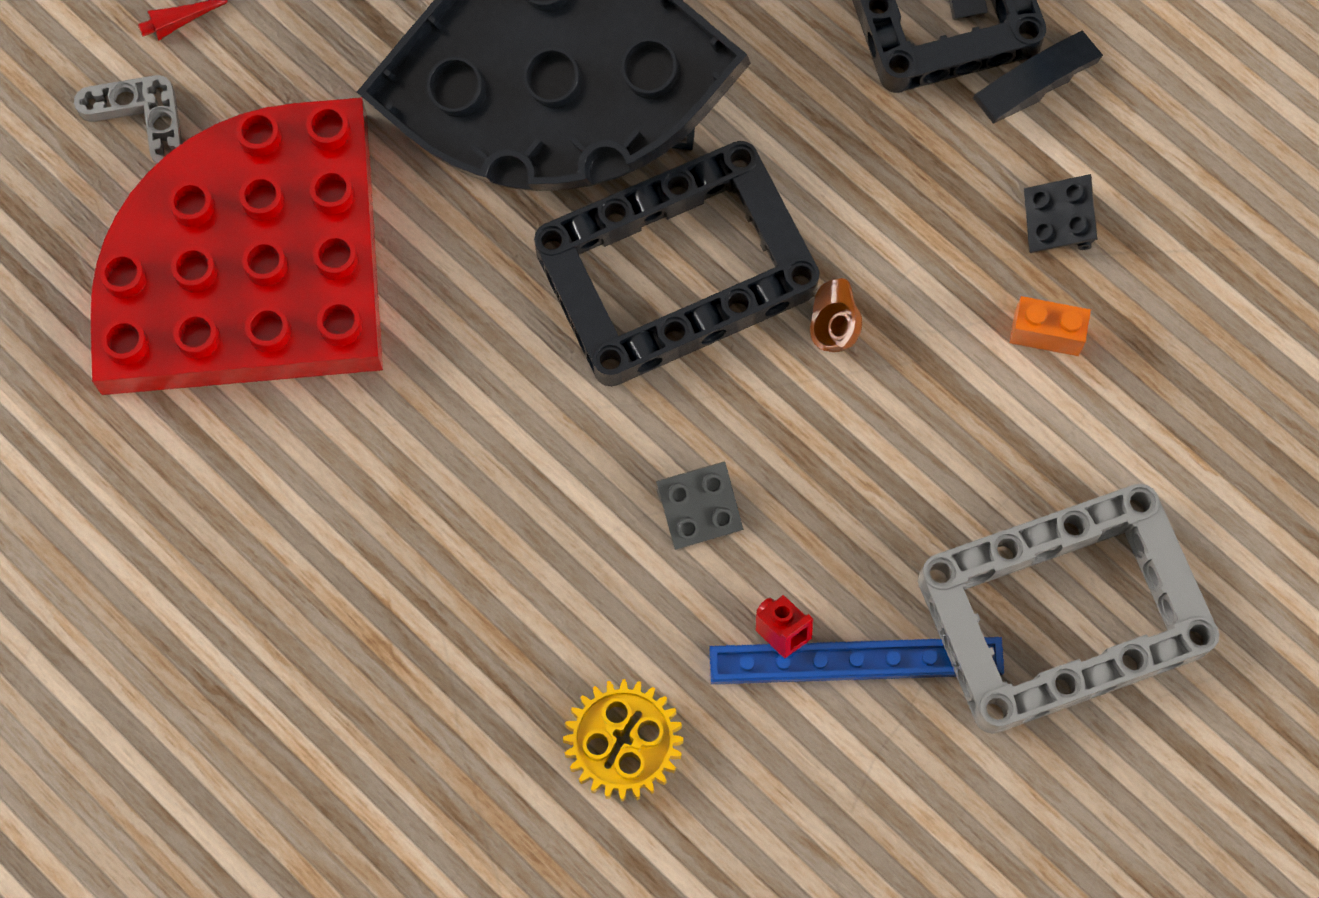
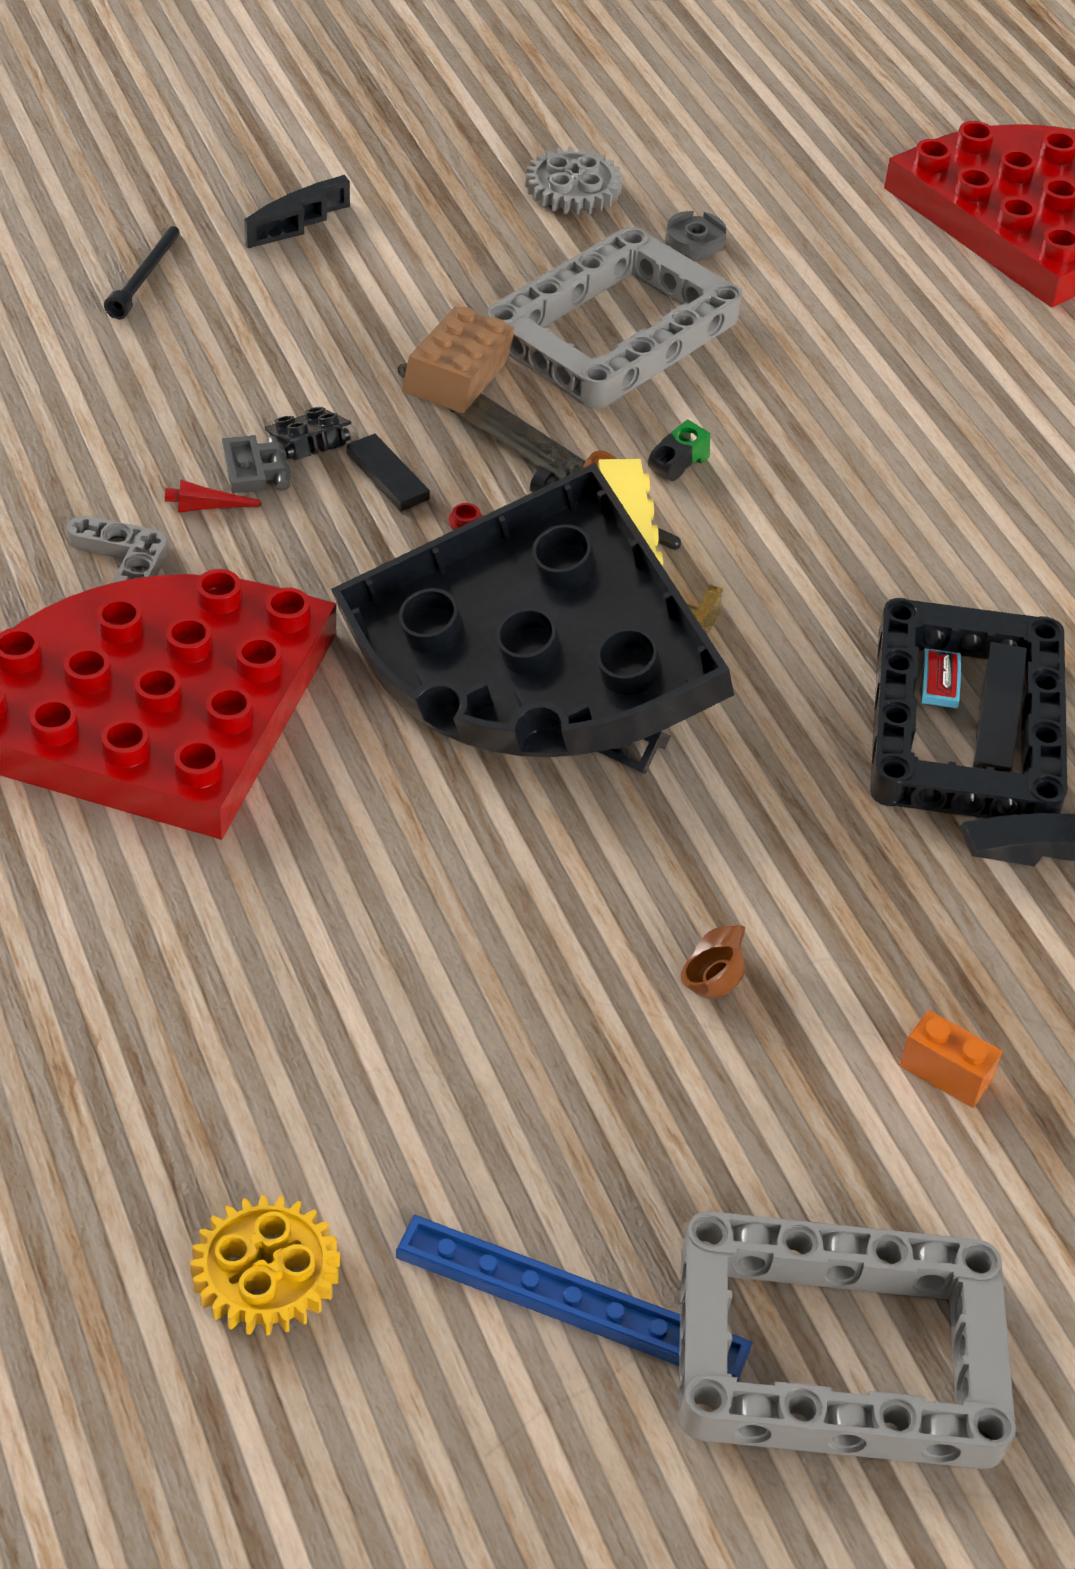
camera: 20 degrees right, 25 degrees down
(699, 505) = (477, 1075): dark grey hinge -> none
(705, 319) = (571, 913): black beam -> none
(783, 625) = (502, 1211): red brick -> none
(1061, 214) = (1011, 966): black hinge -> none

